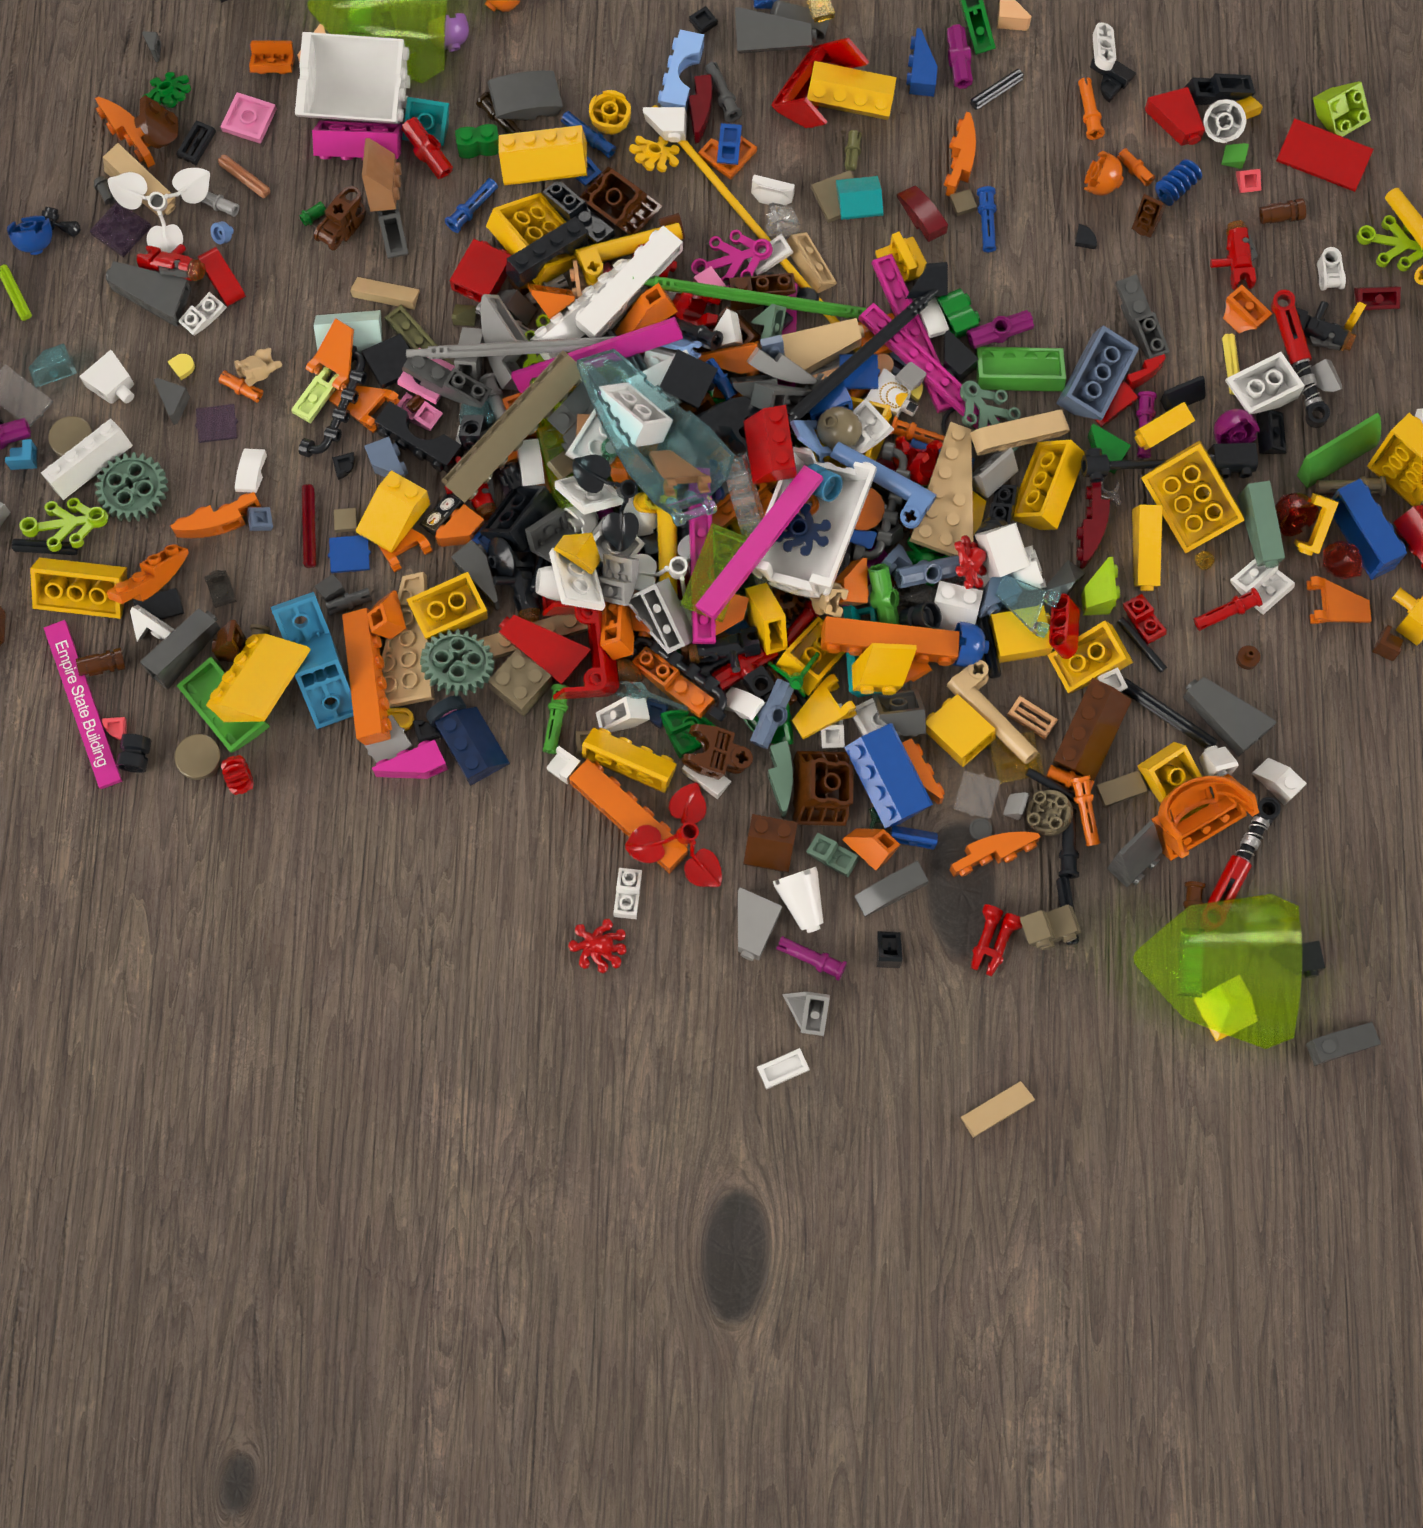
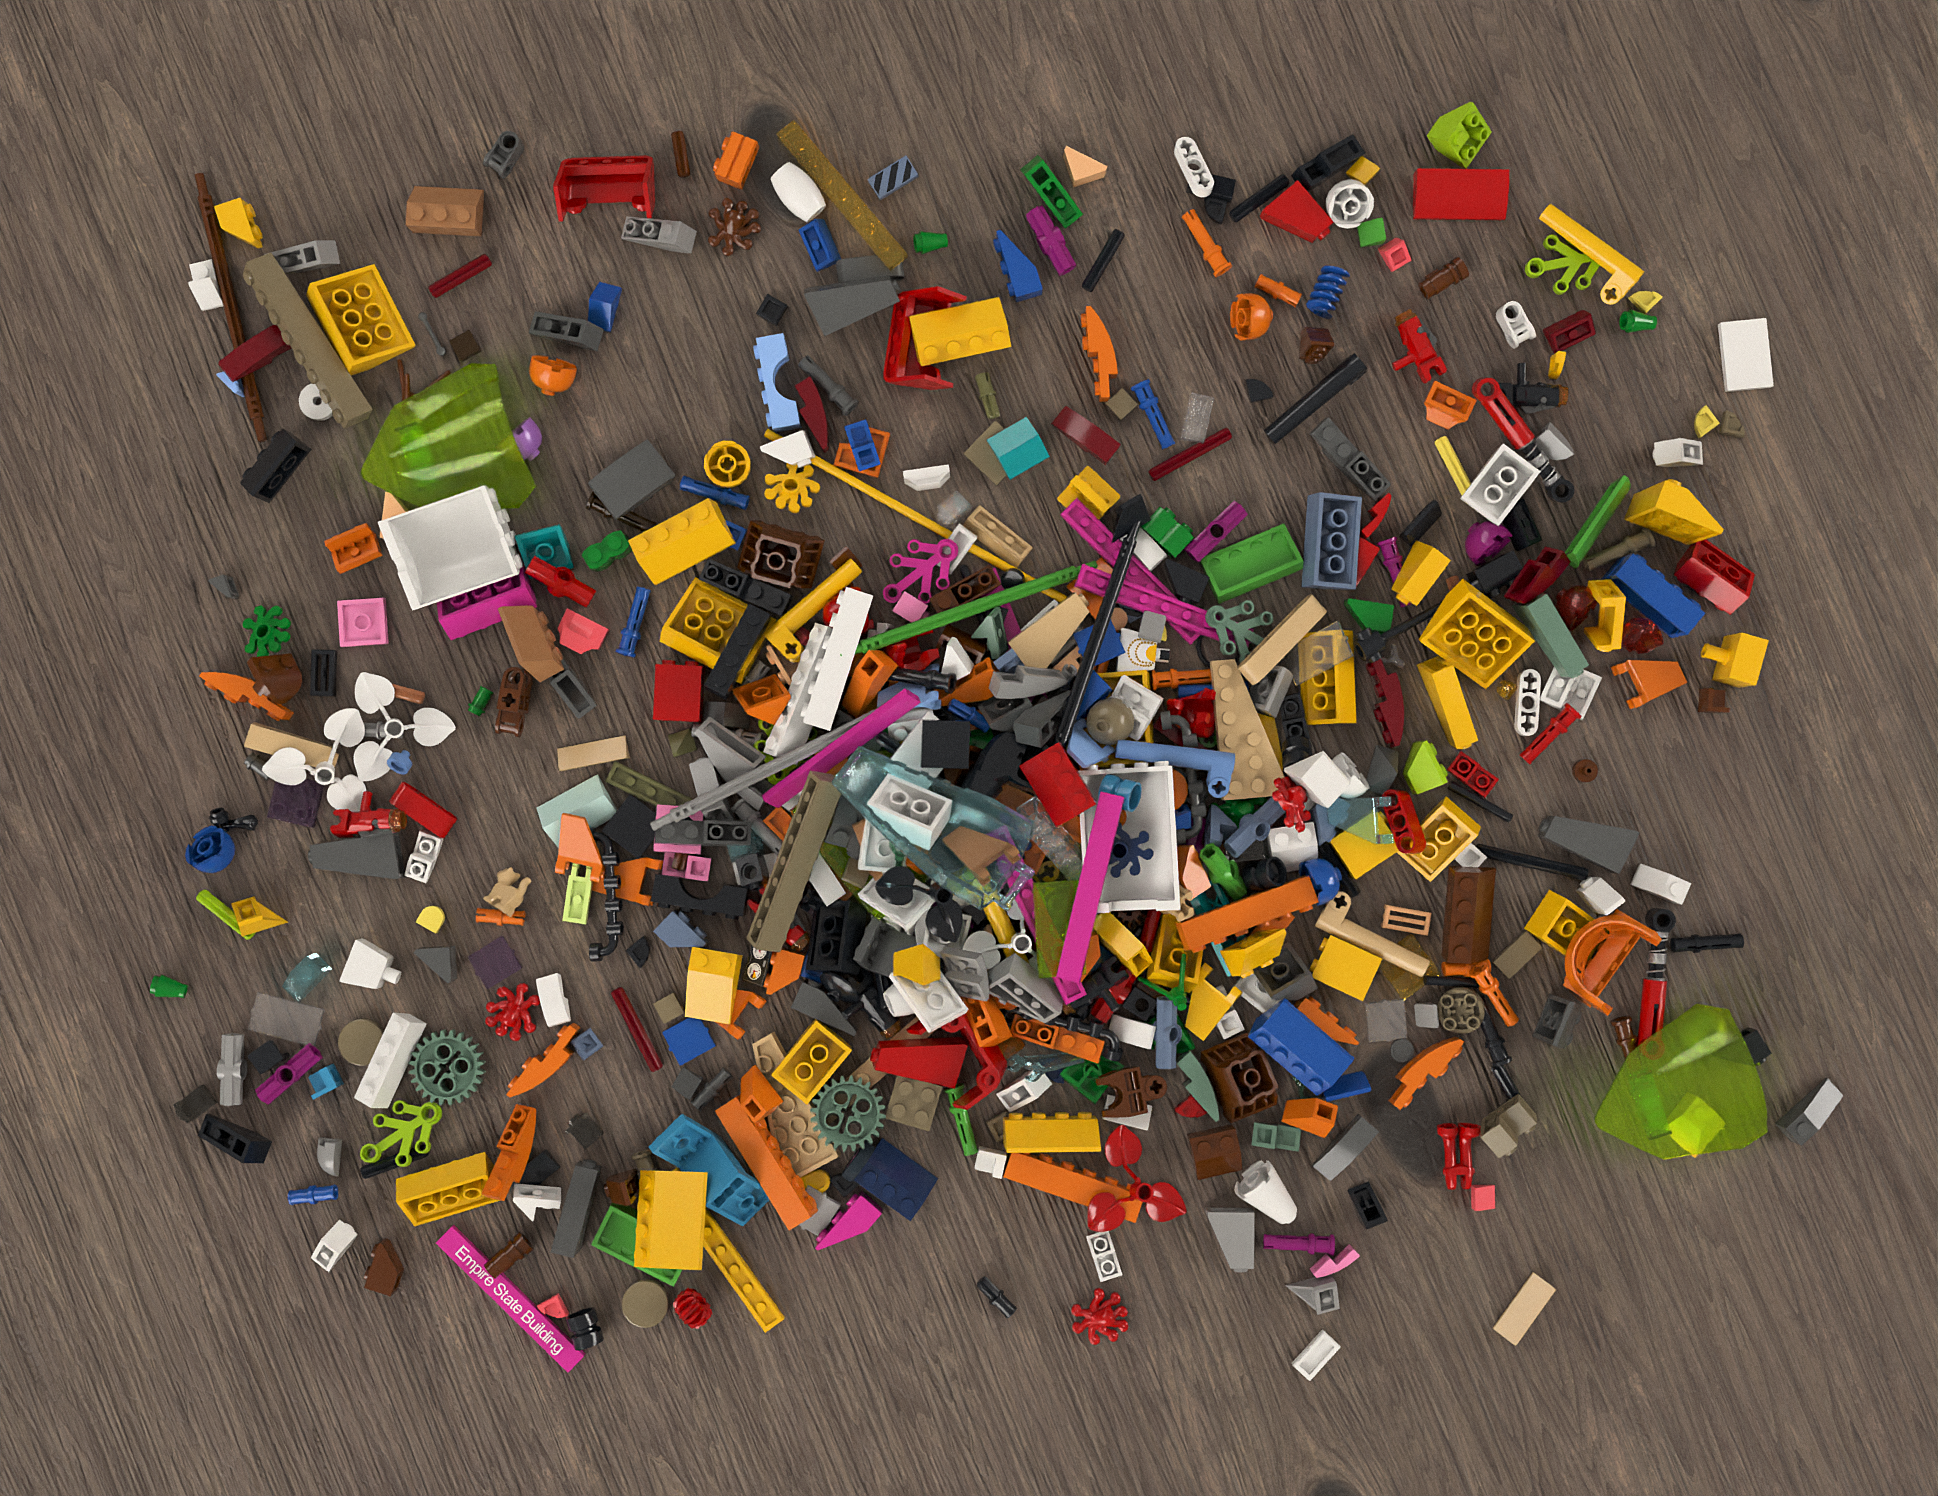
camera: 25 degrees left, 15 degrees up
(35, 302) = (254, 916): none -> yellow slope
(210, 467) = (513, 1012): none -> red animal
(230, 169) = (375, 693): none -> white plant
(291, 762) = (739, 1274): none -> yellow tile
(425, 194) = (580, 632): none -> coral slope
(512, 886) = (996, 1297): none -> black axle
(765, 798) = (1190, 1108): none -> red tile
(831, 988) = (1327, 1266): none -> bright pink slope
(857, 19) = (928, 241): none -> green cone
(1001, 990) = (1482, 1197): none -> coral slope
(1004, 263) = (1190, 454): none -> dark red axle
(1022, 235) = (1196, 418): none -> clear slope
(1046, 455) = (1318, 653): none -> clear piece
(1142, 94) = (1259, 198): none -> black axle
(1169, 244) = (1344, 374): none -> black axle
(1226, 573) = (1521, 684): none -> white beam
(1271, 470) = (1538, 575): none -> dark red slope
(1277, 842) = (1697, 943): none -> black pin

